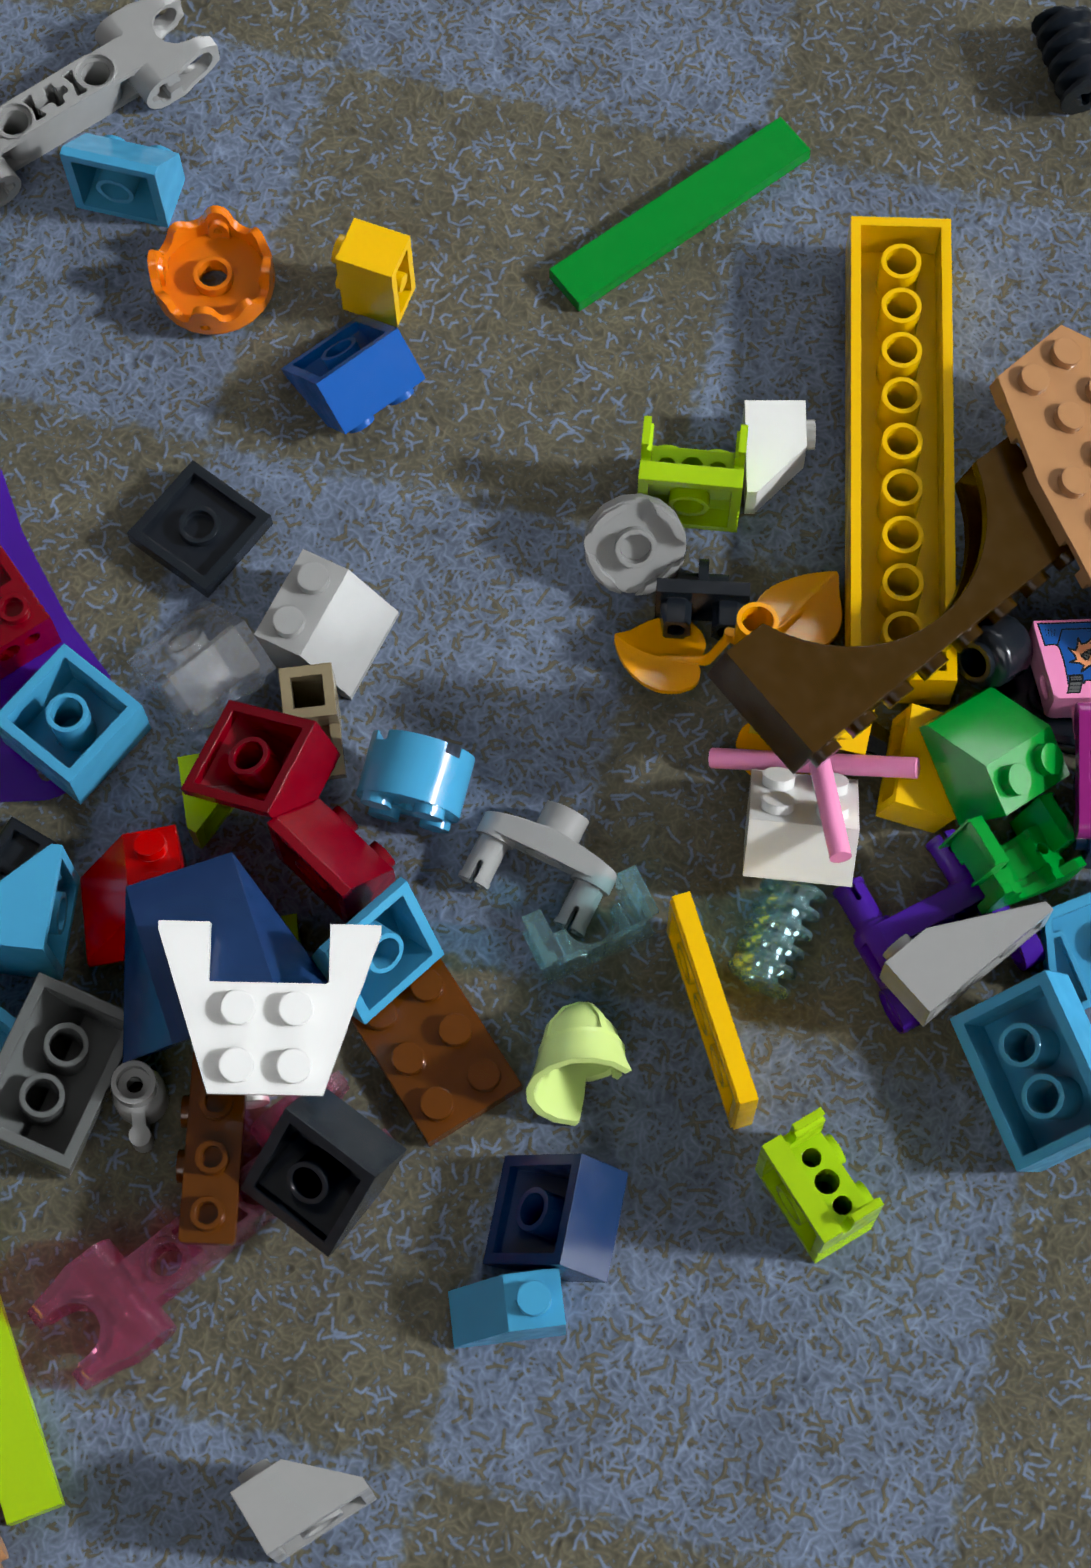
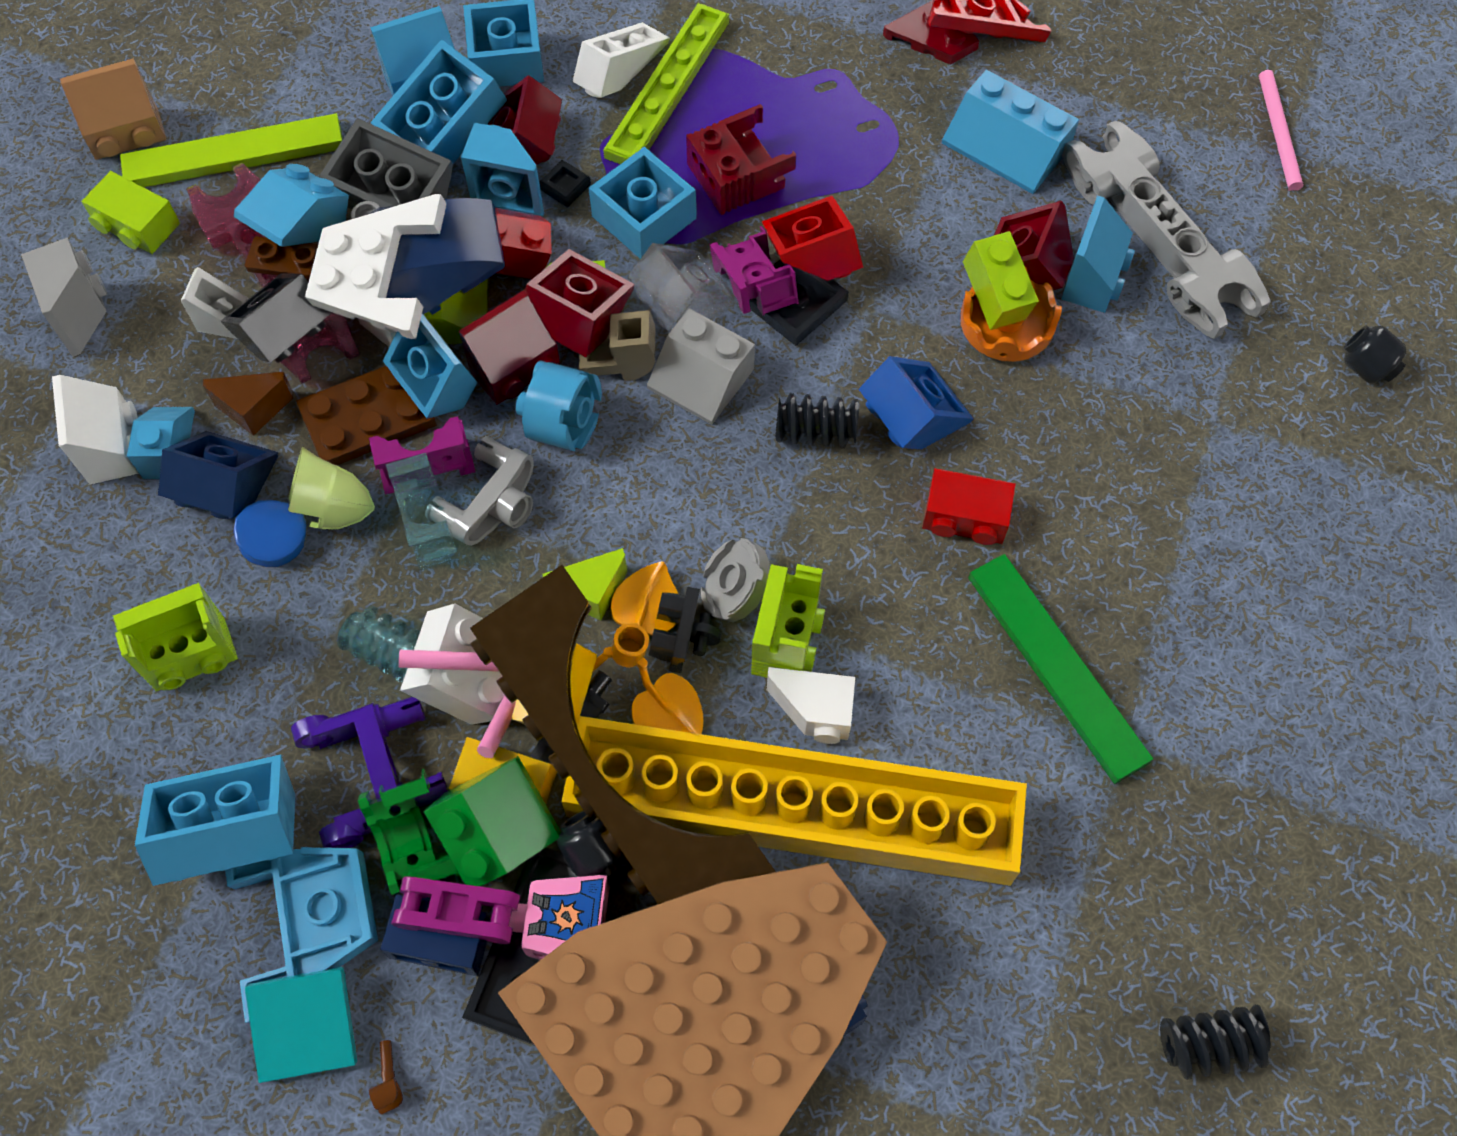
camera: 95 degrees right, 5 degrees down
(102, 256) = (1042, 242): none -> dark red slope
(124, 494) = (816, 239): none -> red slope
(125, 1469) = (130, 212): none -> lime brick
(129, 1190) = (292, 206): none -> dark azure slope
(186, 268) = (1000, 280): none -> lime brick
(189, 564) = (754, 274): none -> magenta piece
(288, 1280) = (209, 302): none -> white slope
(374, 271) = (996, 414): yellow brick -> none
(394, 476) = (817, 420): none -> black piece
(439, 1202) = (250, 398): none -> reddish brown slope
(492, 904) = (445, 453): none -> magenta piece
(494, 307) = (968, 507): none -> red brick
(518, 1391) = (94, 428): none -> white slope
(635, 1126) = (269, 533): none -> blue piece
(657, 713) = (599, 579): none -> lime slope
(711, 1011) = (330, 581): yellow tile -> none
(954, 956) = (322, 758): light grey slope -> none

